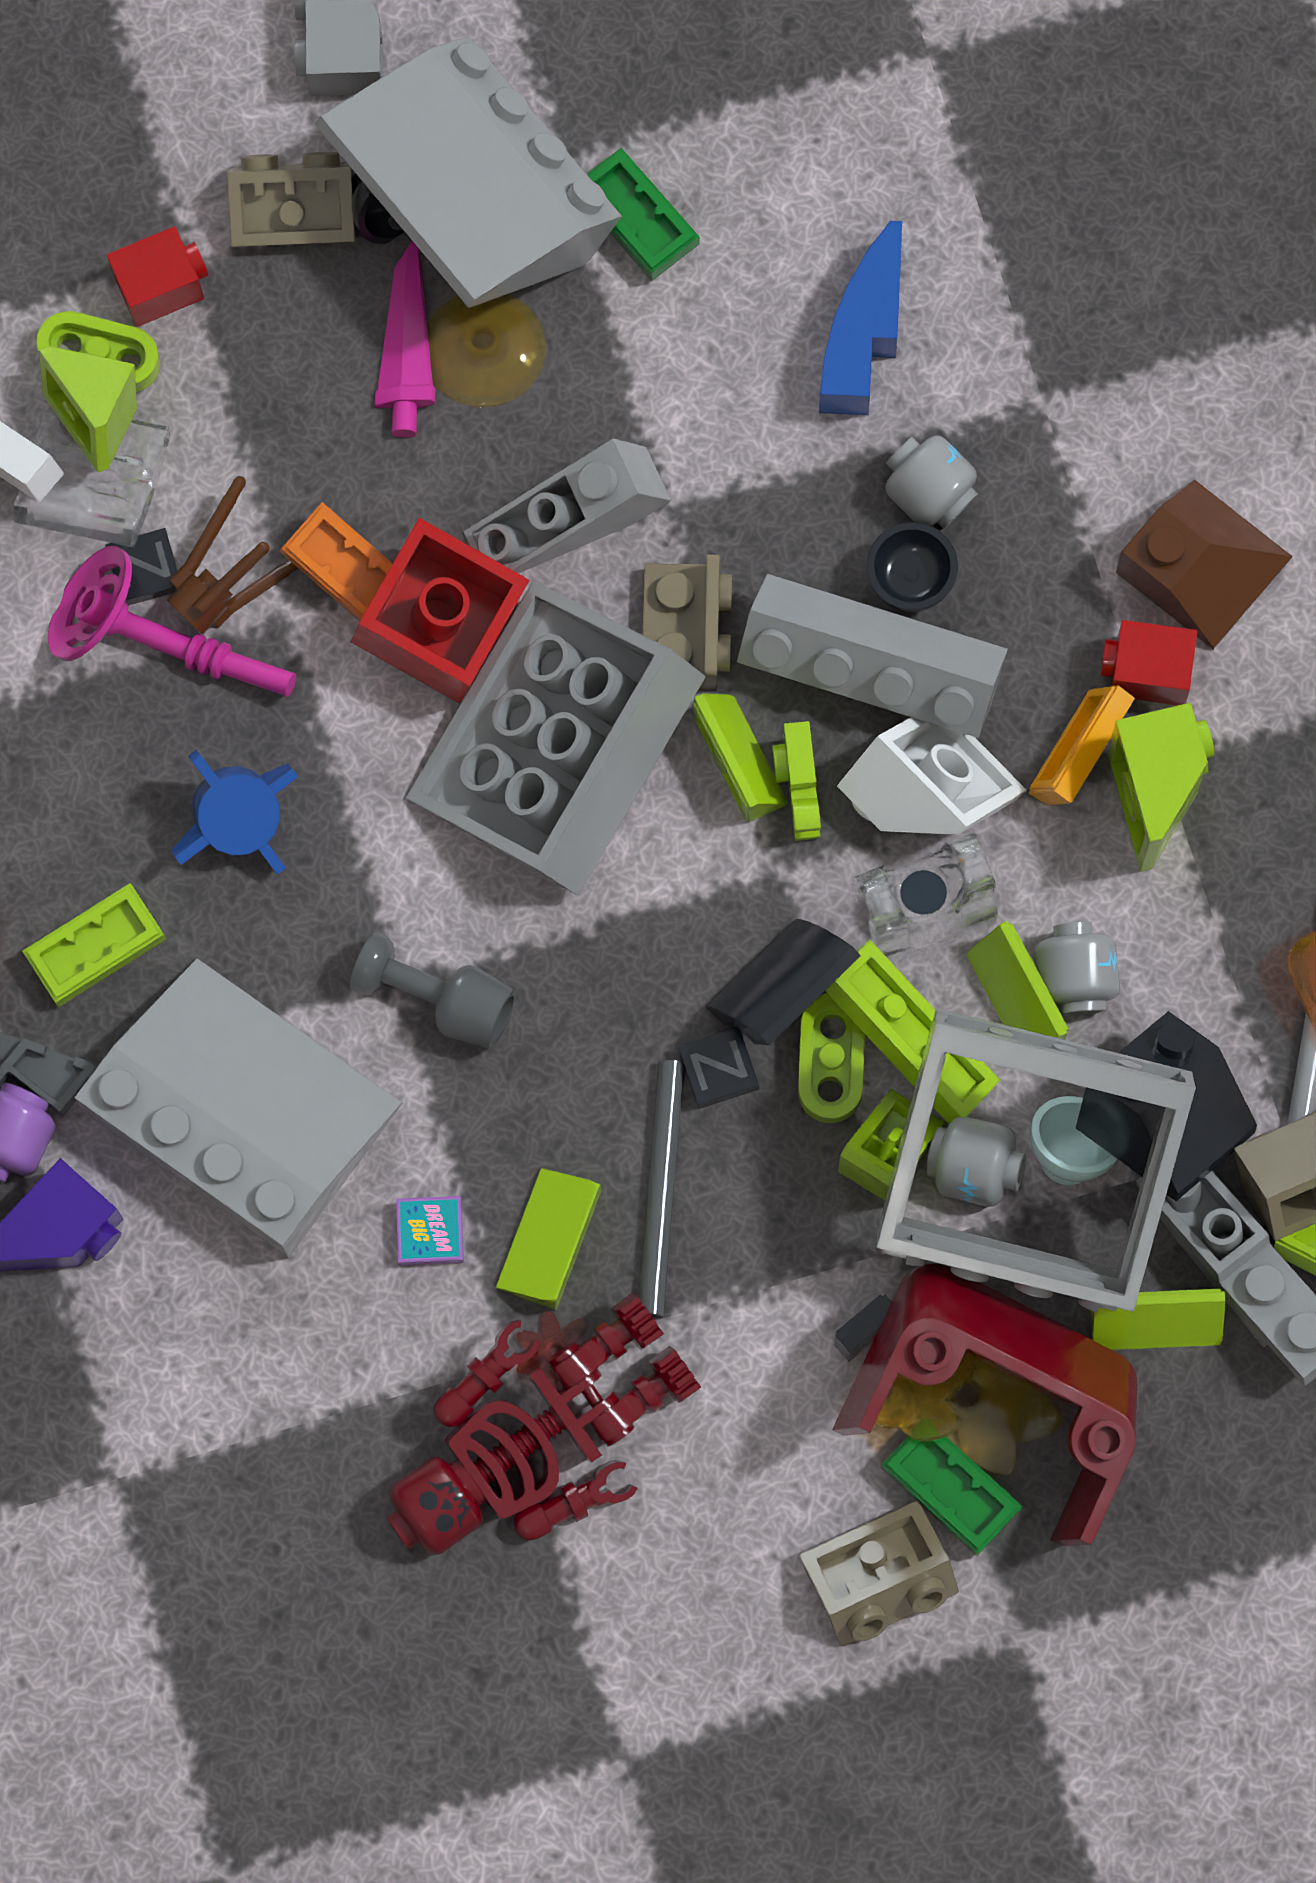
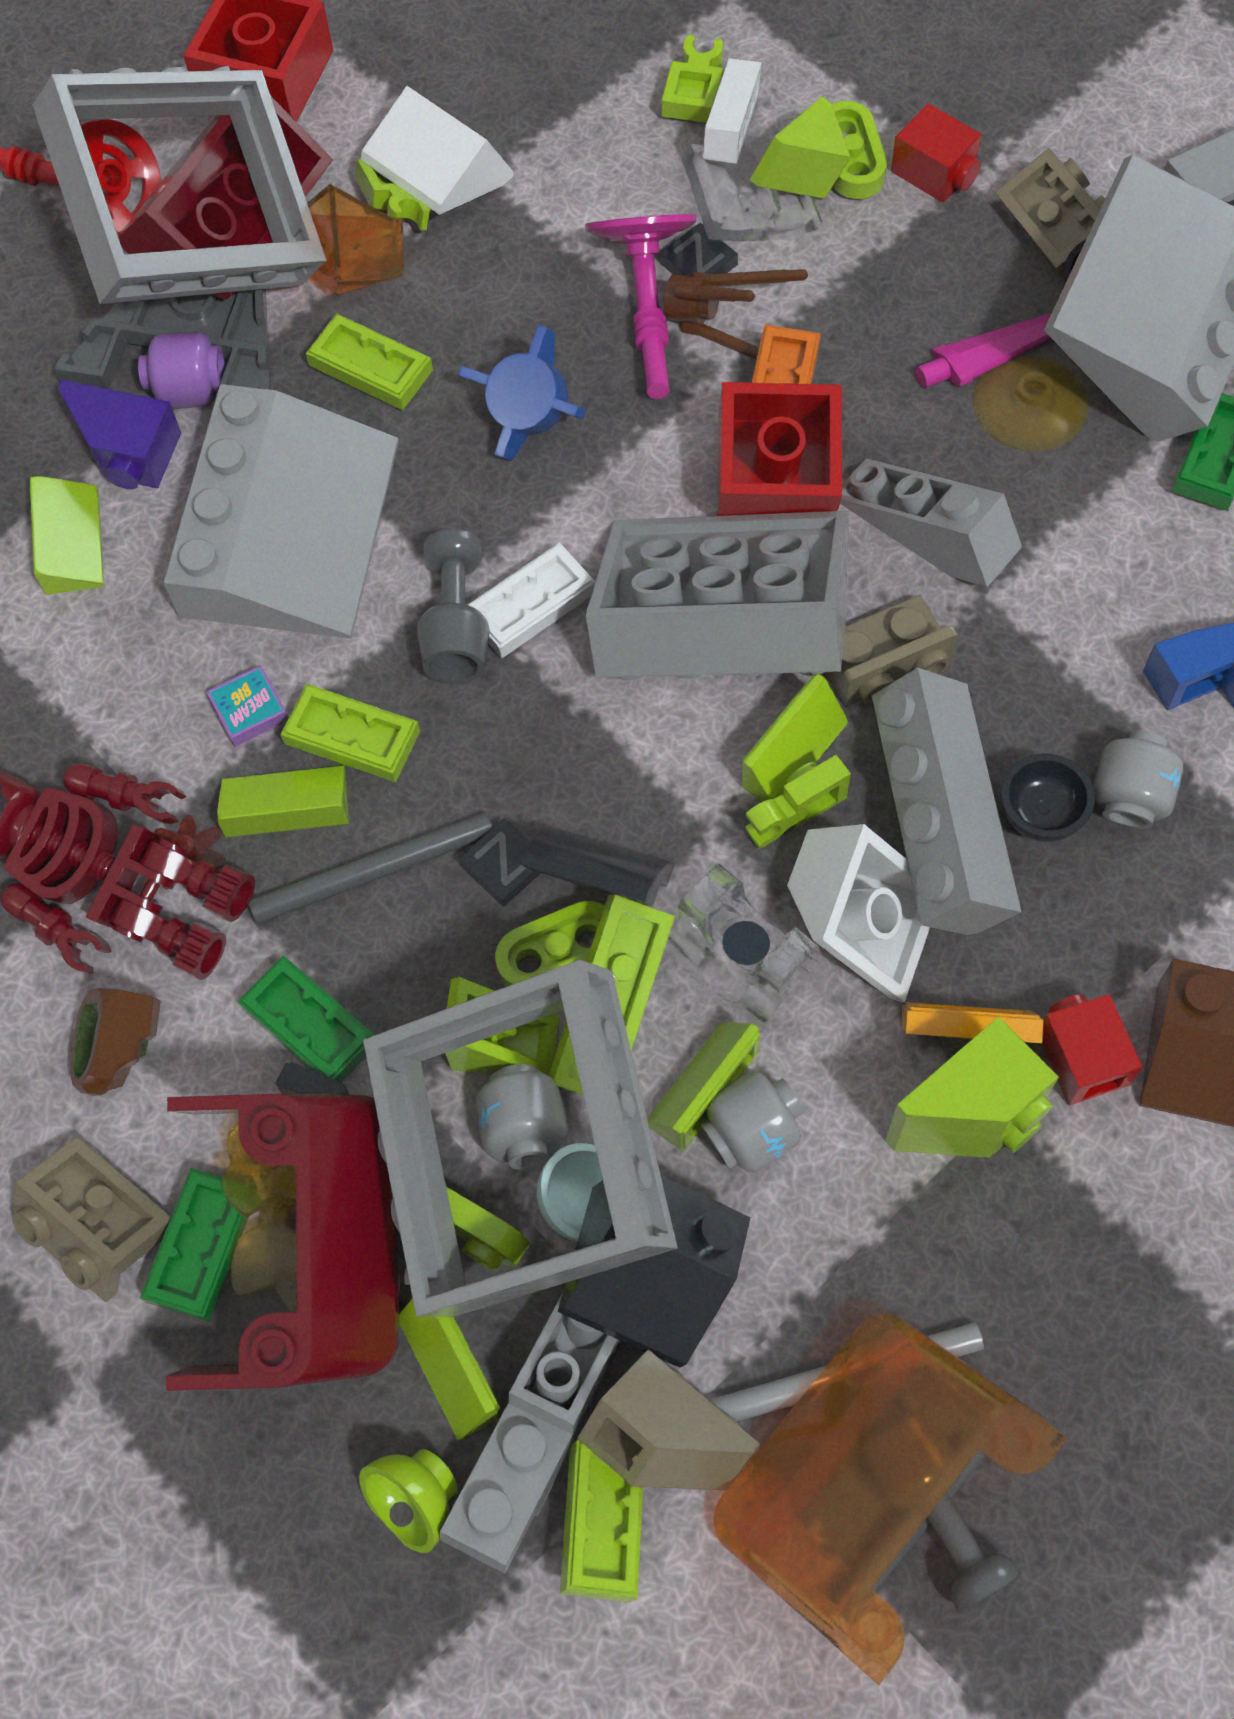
camera: 65 degrees right, 10 degrees down
(139, 1327) = (66, 535): none -> lime slope
(458, 912) = (533, 598): none -> white plate
(514, 1145) = (350, 732): none -> lime plate
(720, 1488) = (110, 1038): none -> reddish brown rock
(790, 1308) = (306, 1020): none -> green plate
(1069, 1237) = (487, 1236): none -> lime plate
(1254, 1384) = (421, 1483): none -> lime piece

